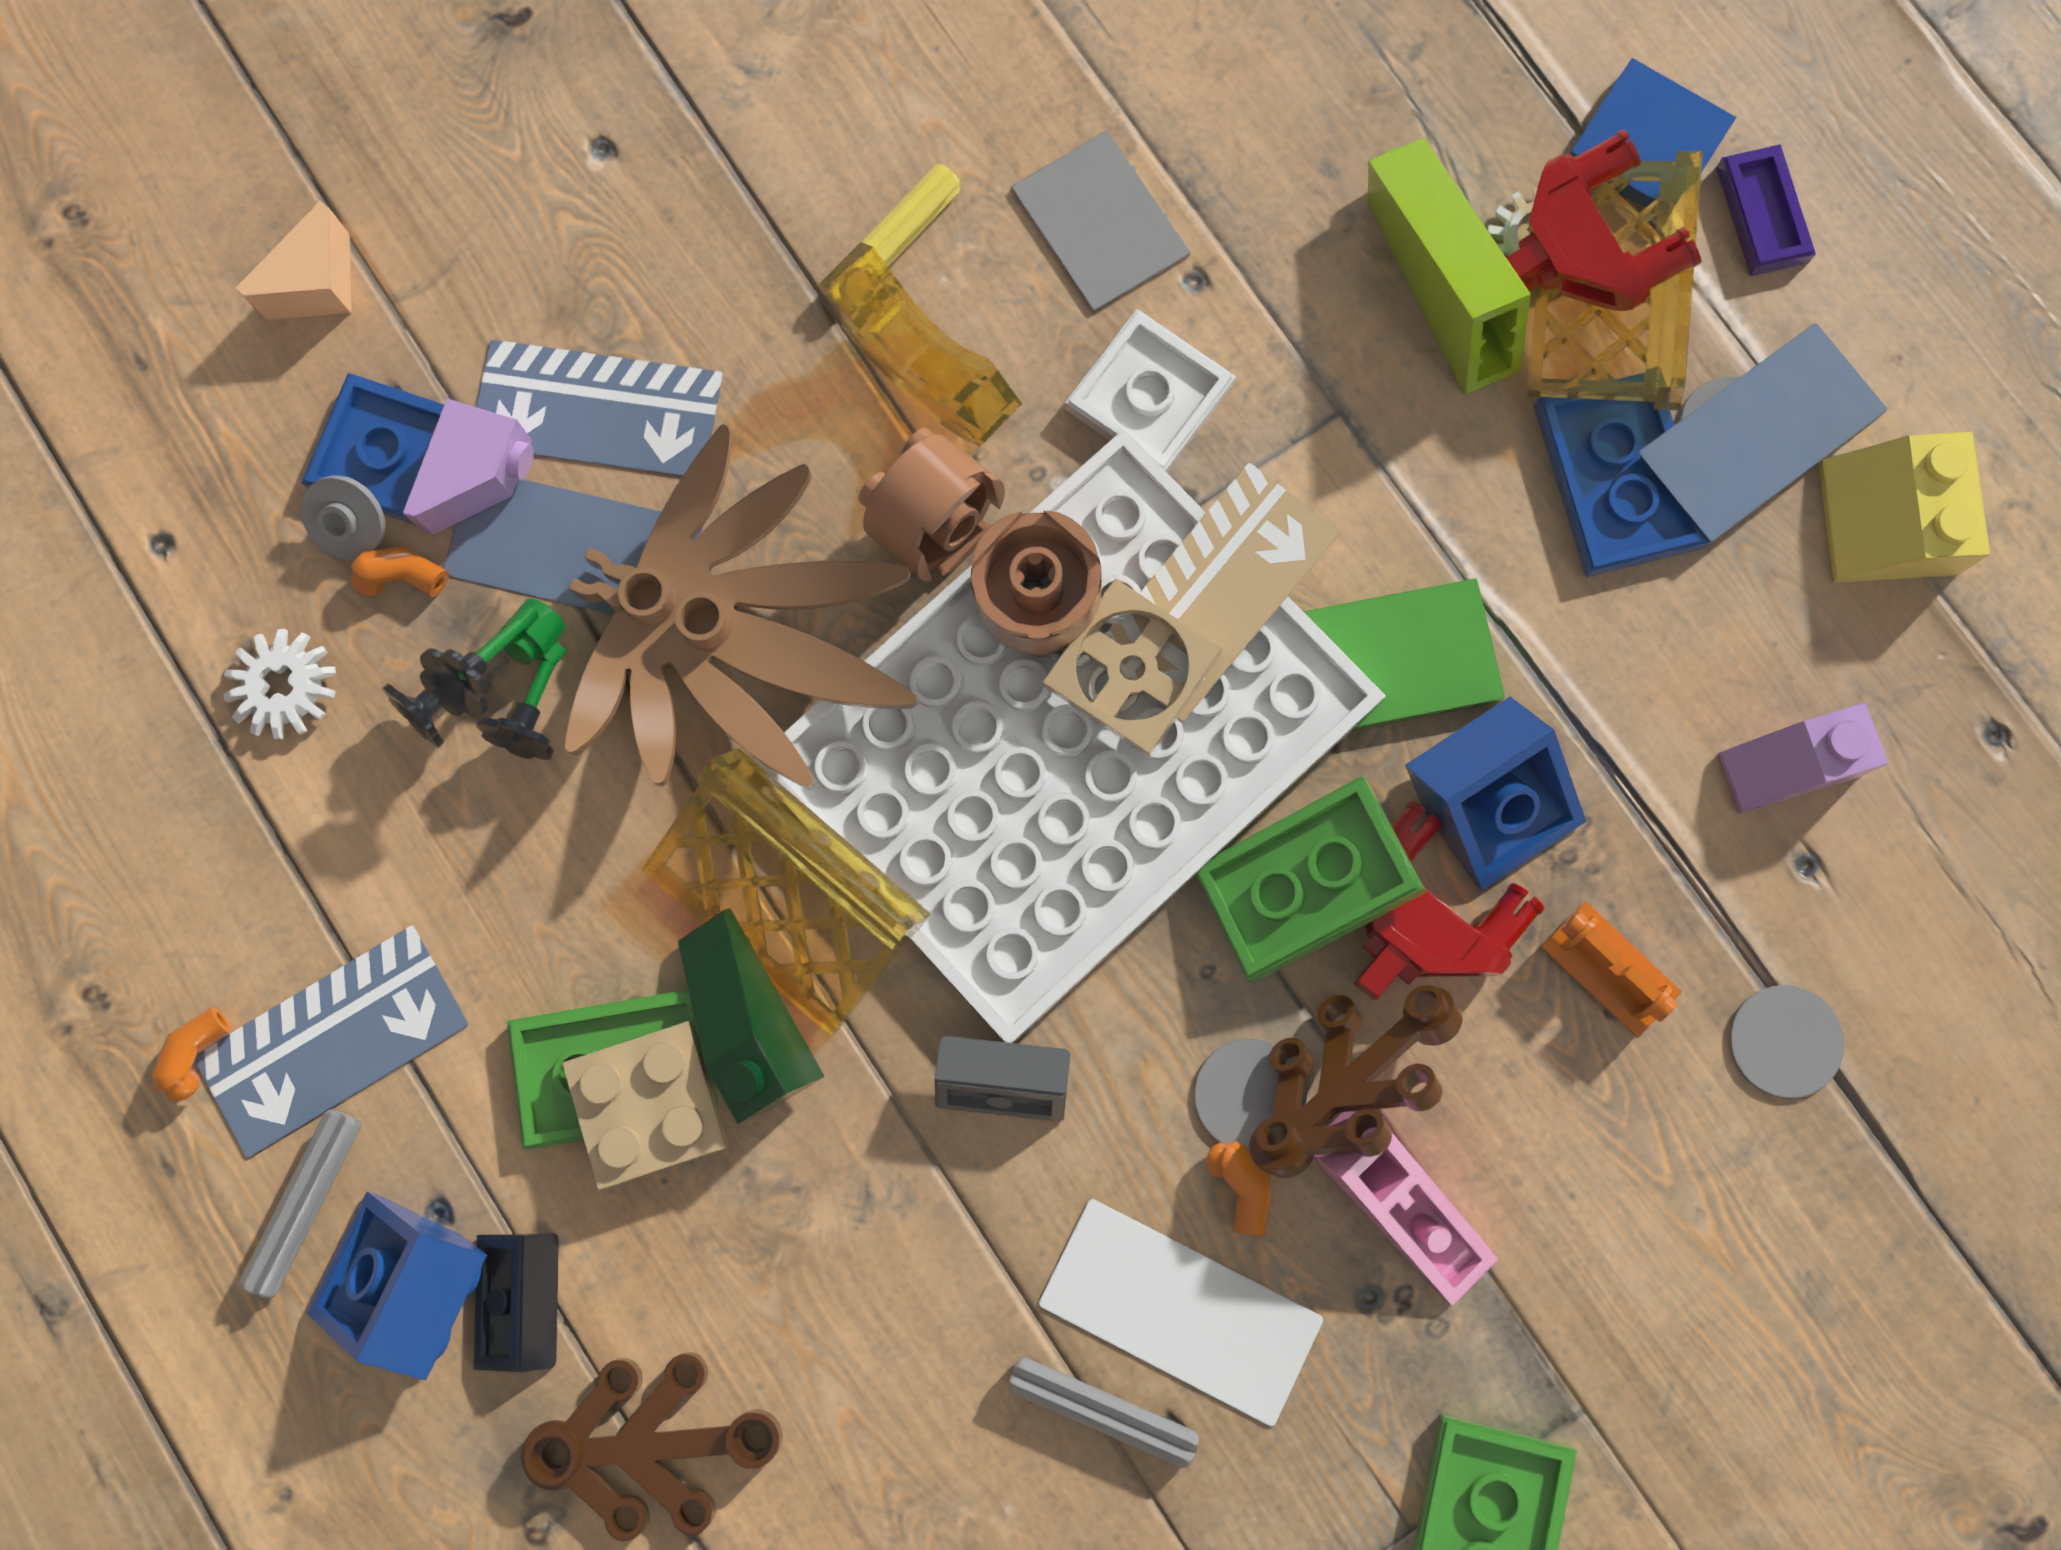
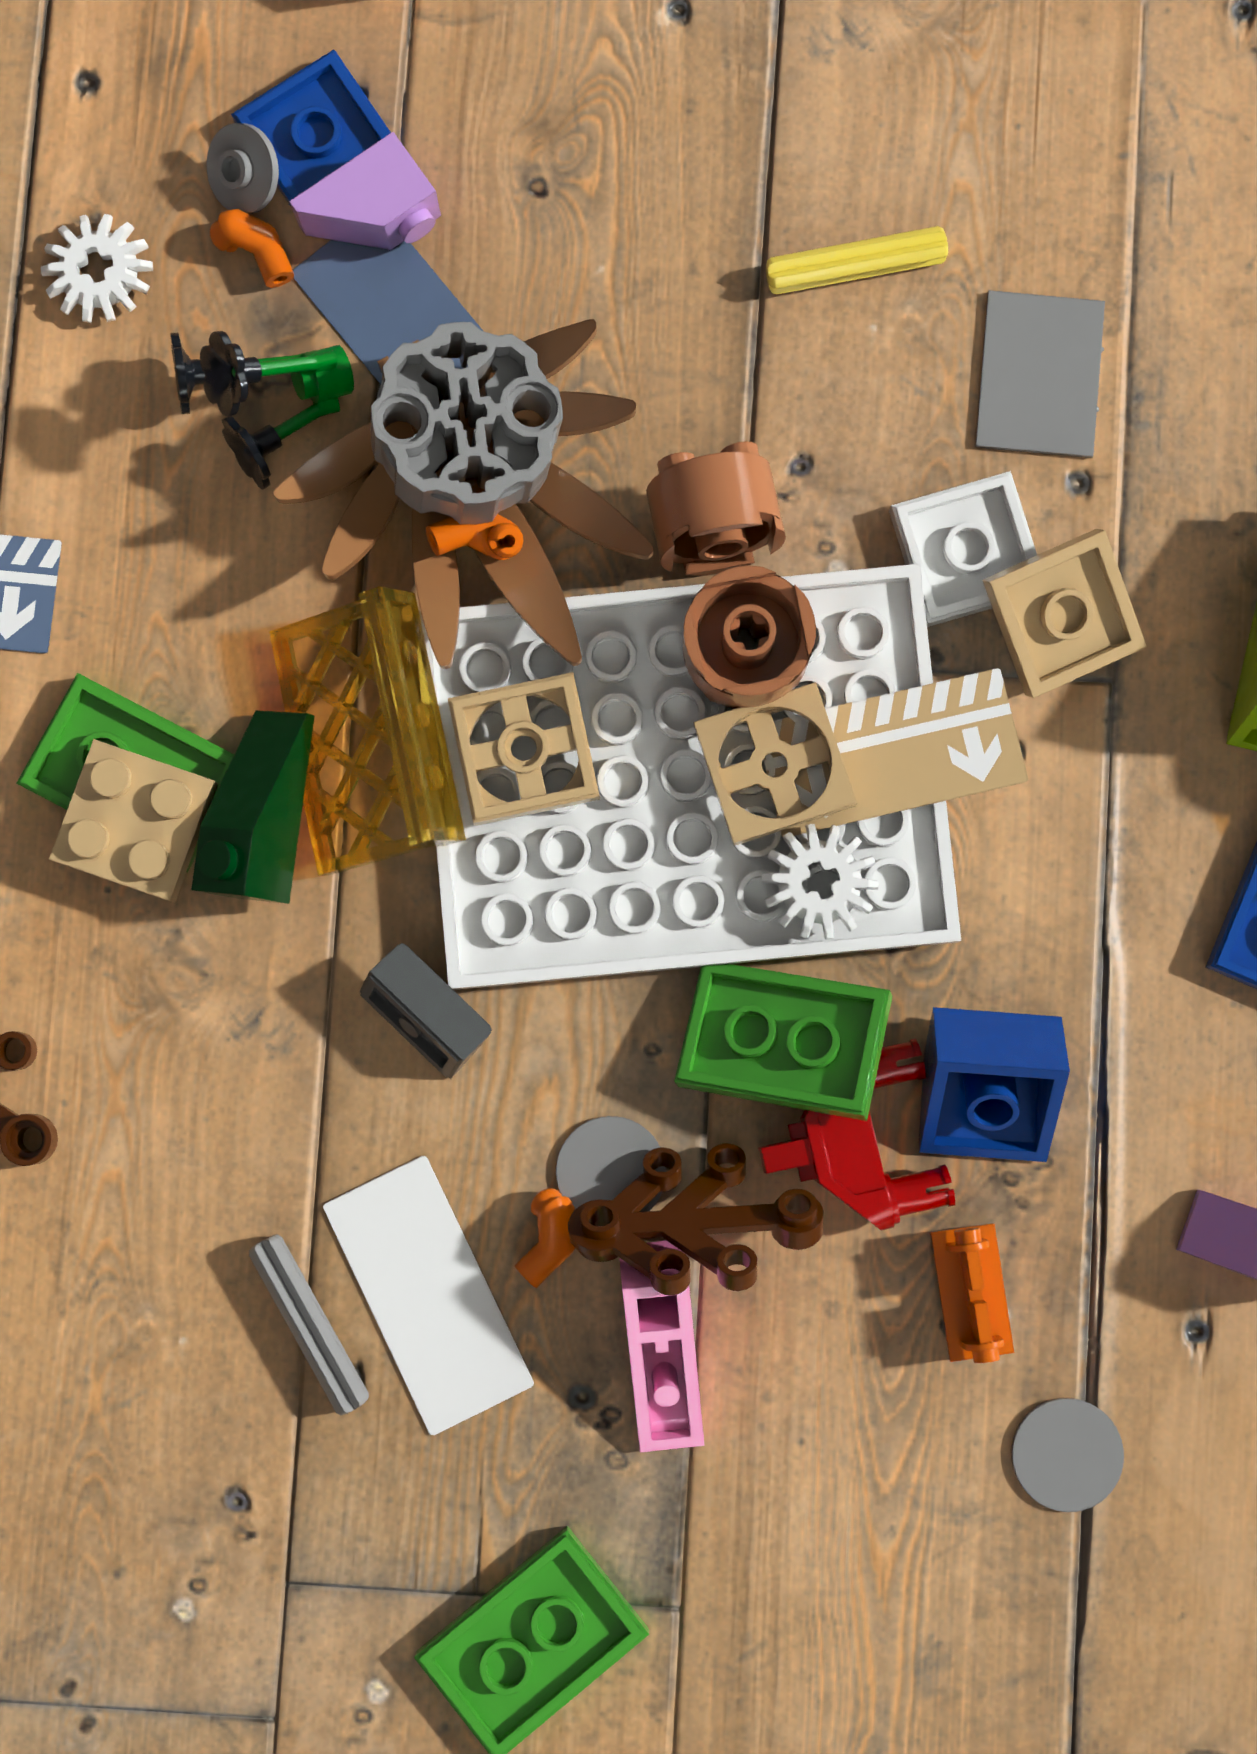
camera: 30 degrees right, 5 degrees up
(602, 405) = (517, 227): sand blue sticker -> none
(639, 543) = (410, 394): none -> light grey connector
(751, 660) = (496, 539): none -> orange arm
(913, 353) = (800, 371): clear yellow arch -> none
(921, 738) = (467, 711): none -> tan piece
(1246, 757) = (810, 905): none -> white gear
(1265, 384) = (1064, 613): none -> tan plate
(1420, 649) = (1019, 922): bright green tile -> none

